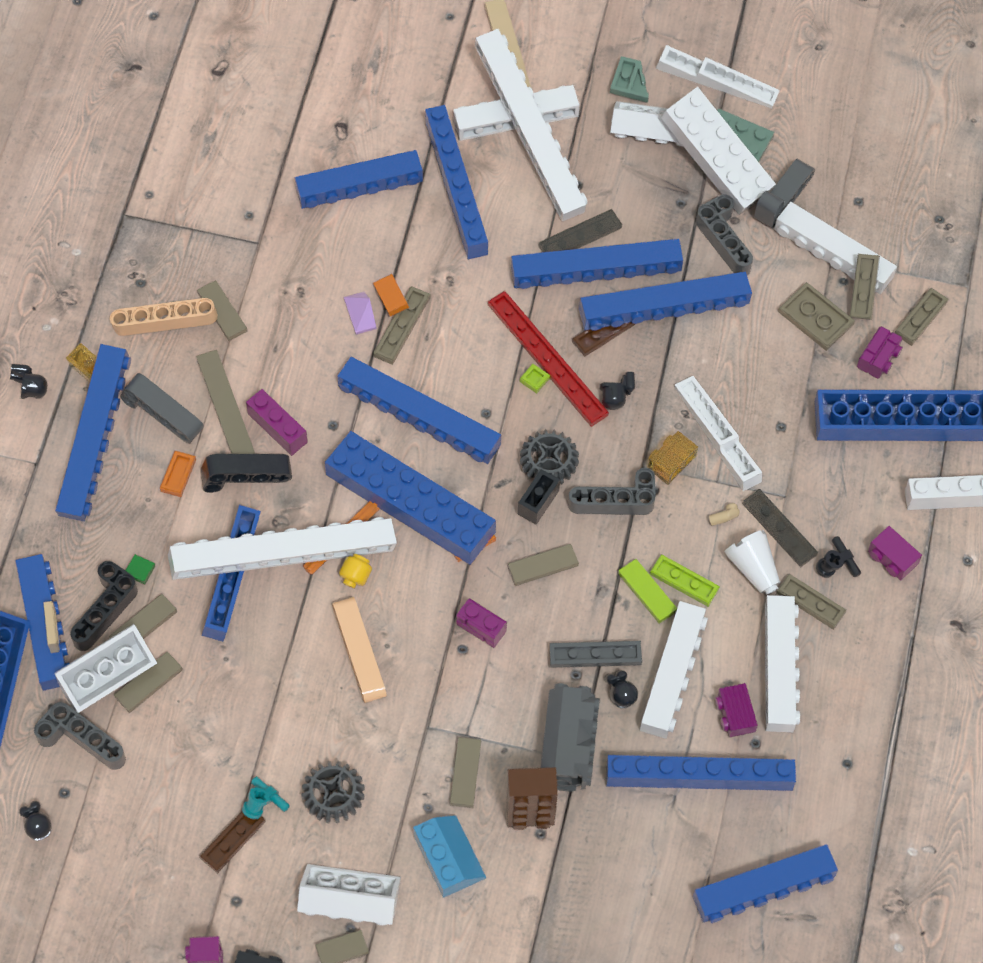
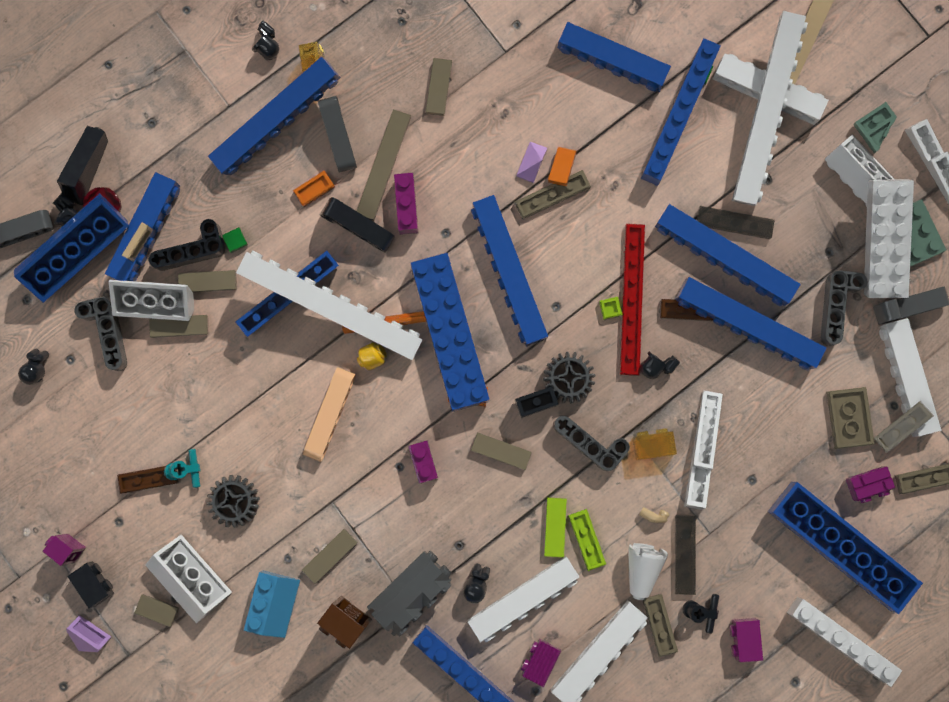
camera: 45 degrees right, 20 degrees up
(156, 311) = (388, 55): light nougat beam -> none
(595, 654) = (481, 544): dark grey plate -> none

